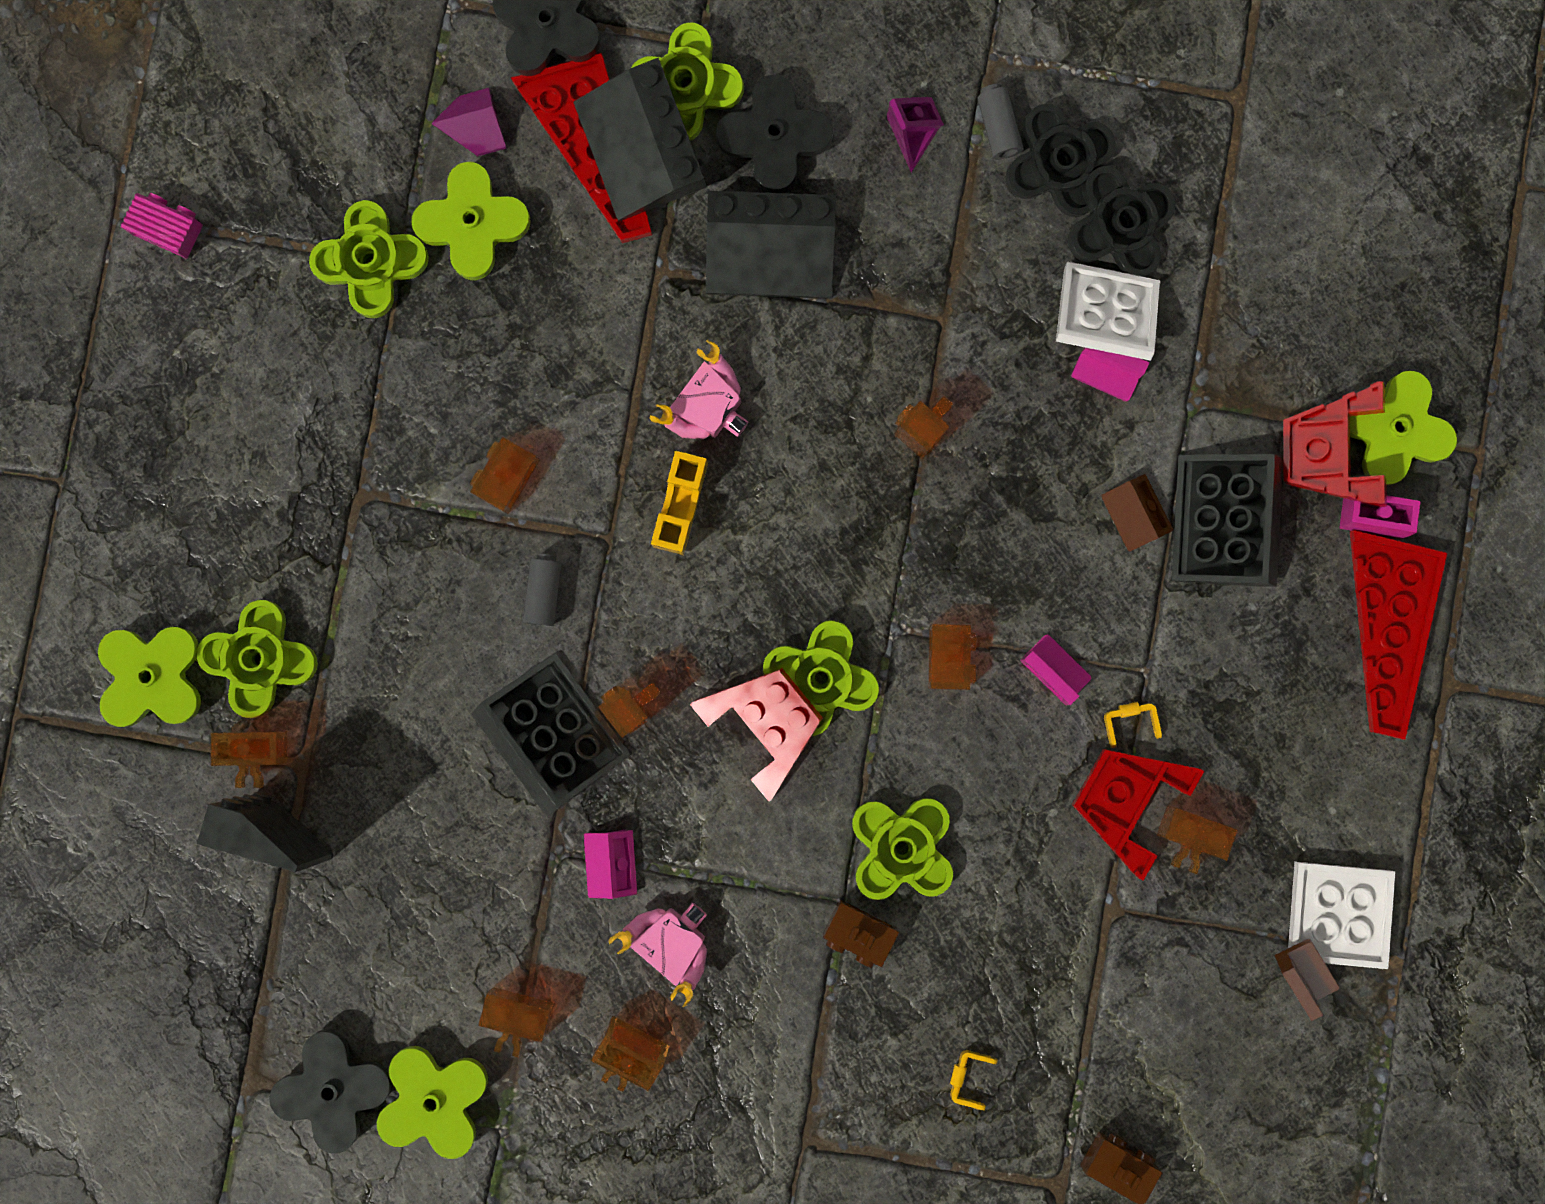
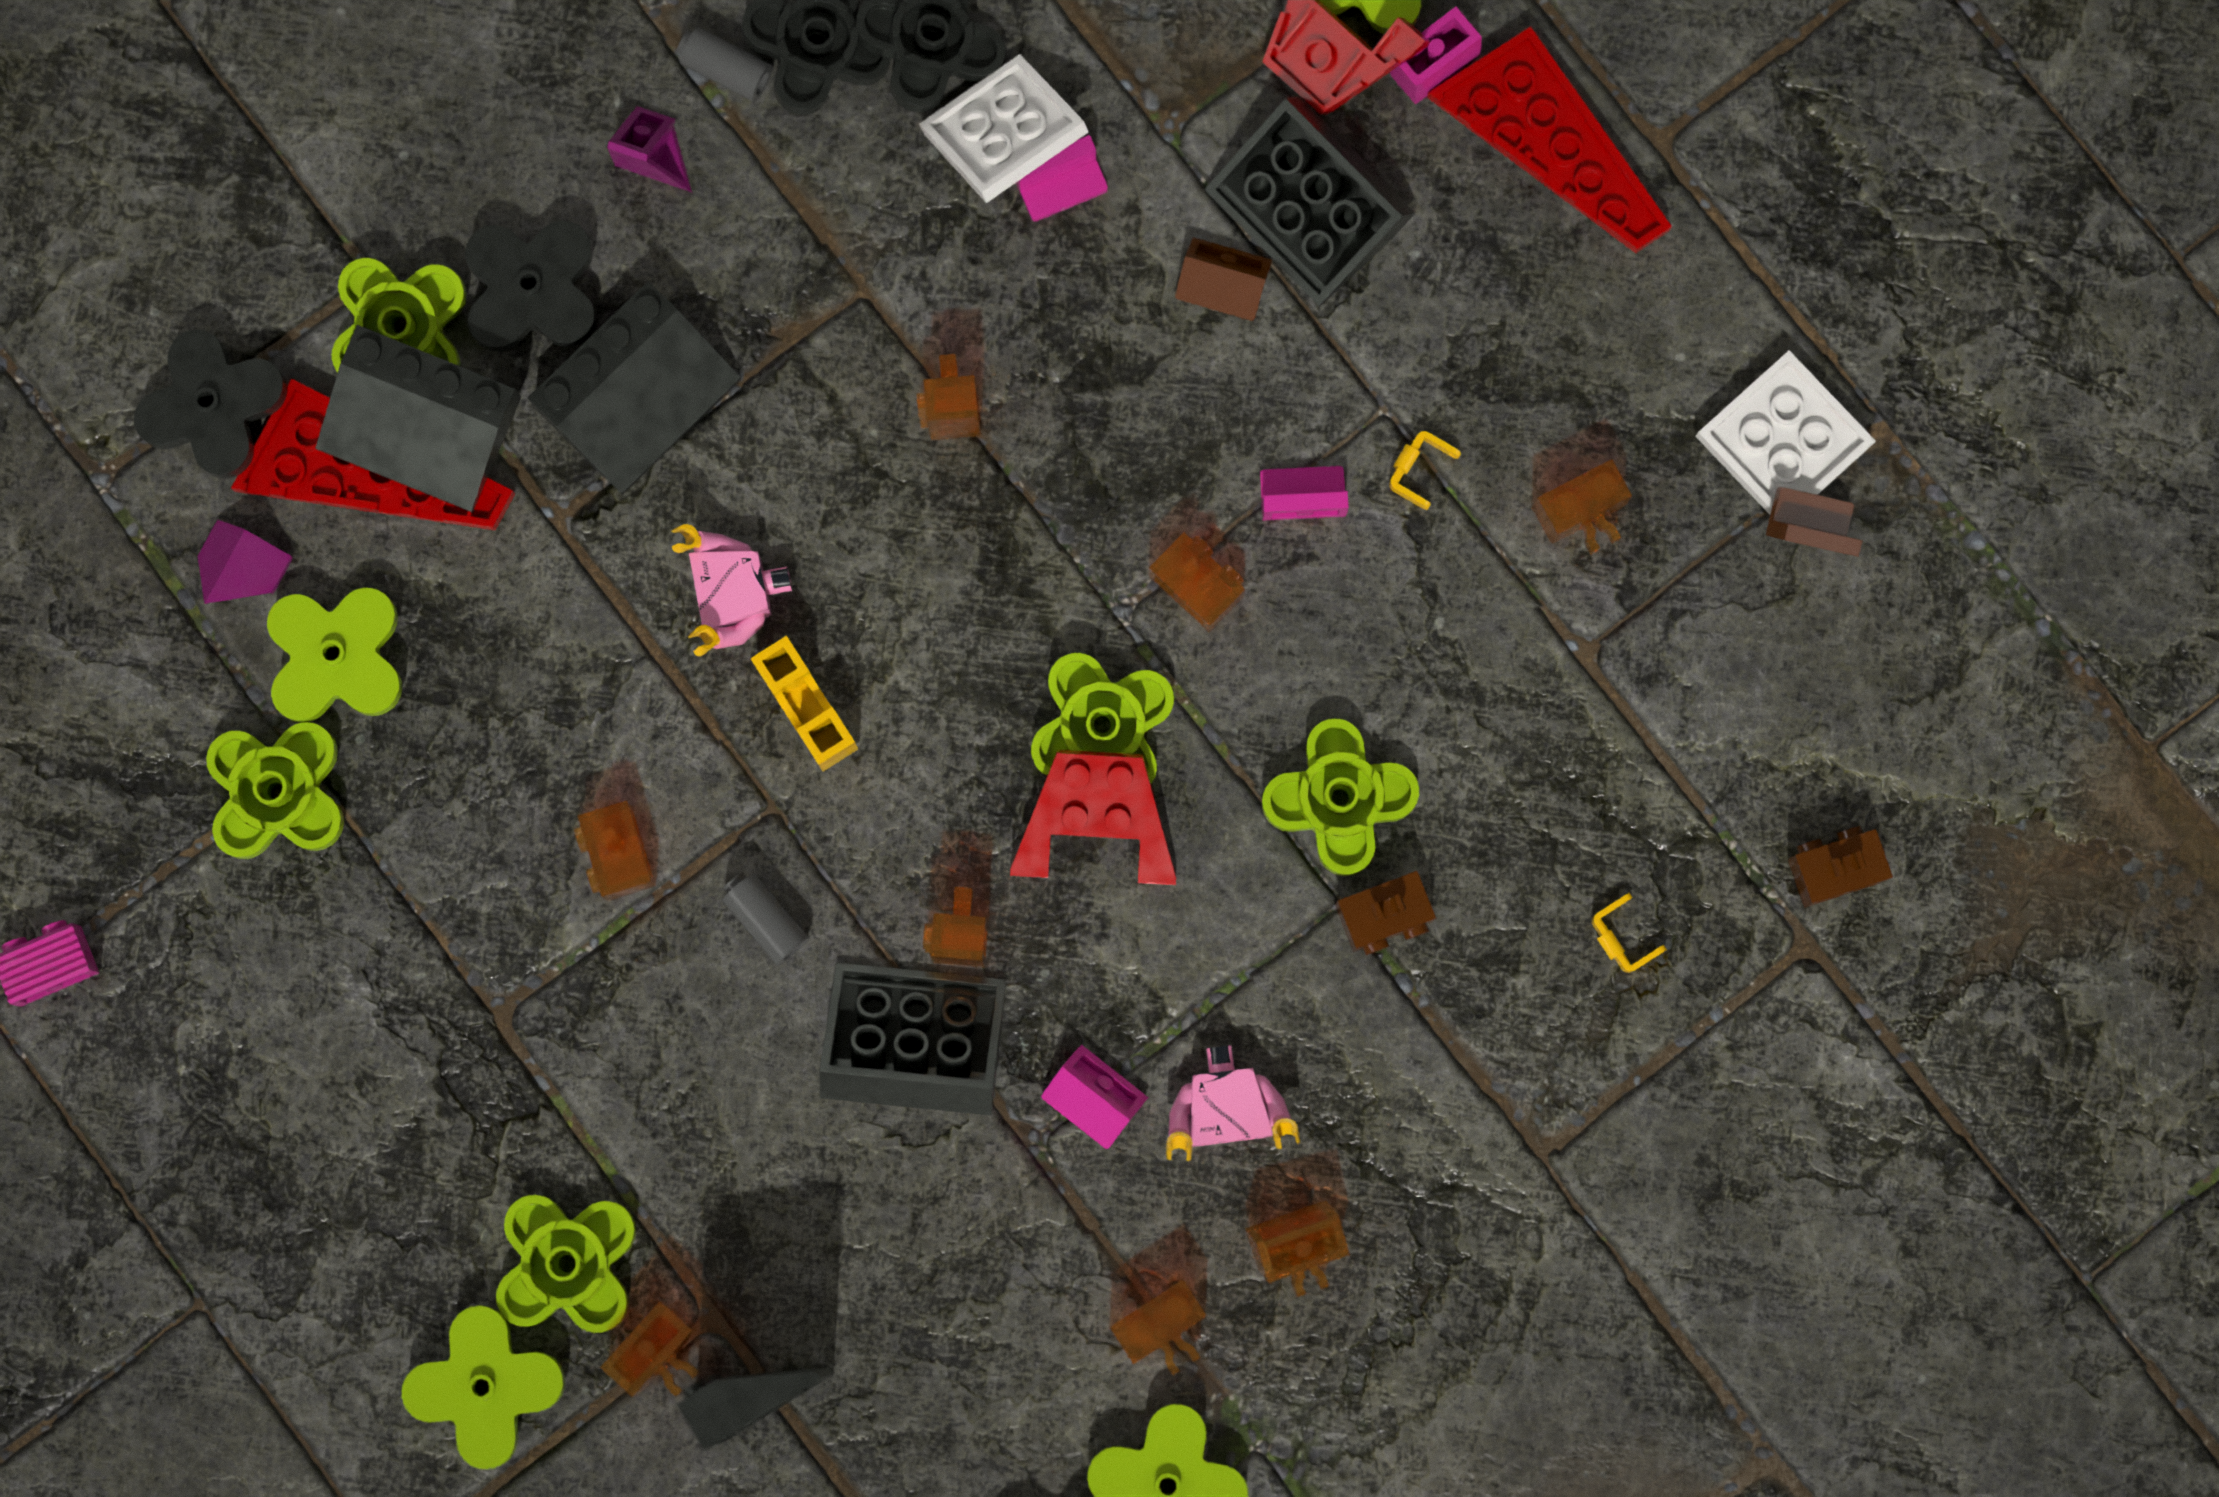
camera: 50 degrees left, 5 degrees down
(1118, 794) = (1478, 545): red wing -> none

